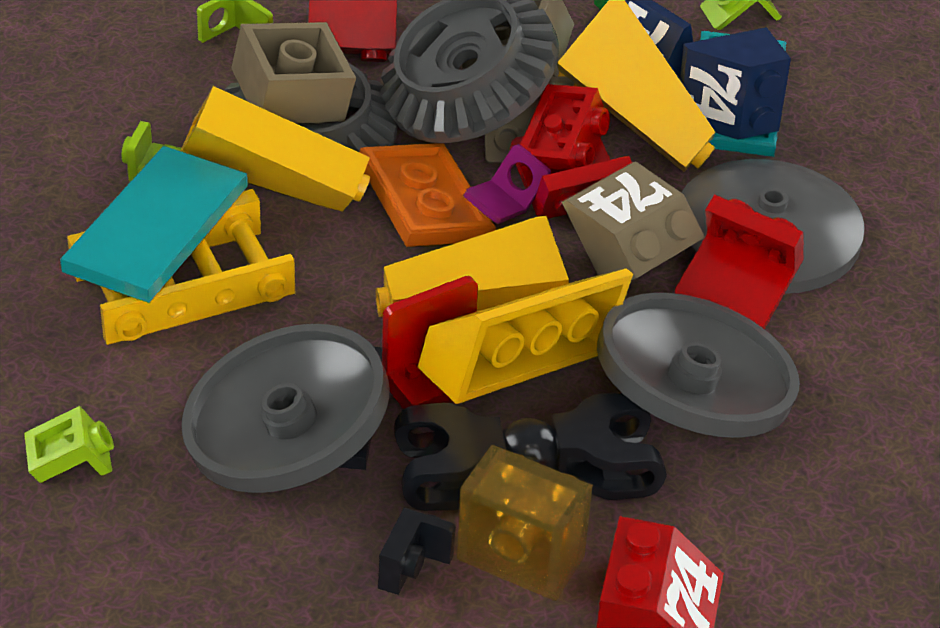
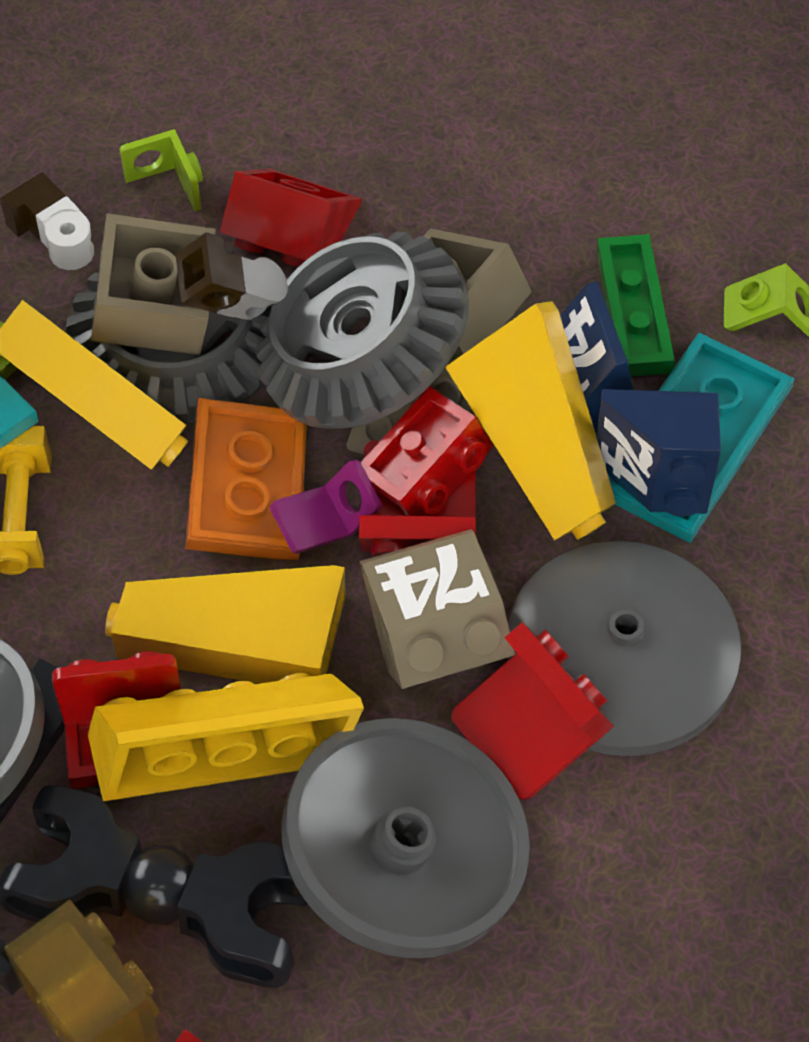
camera: 25 degrees right, 15 degrees up
(163, 72) = (52, 219): none -> leg
(359, 45) = (226, 281): none -> dark brown leg

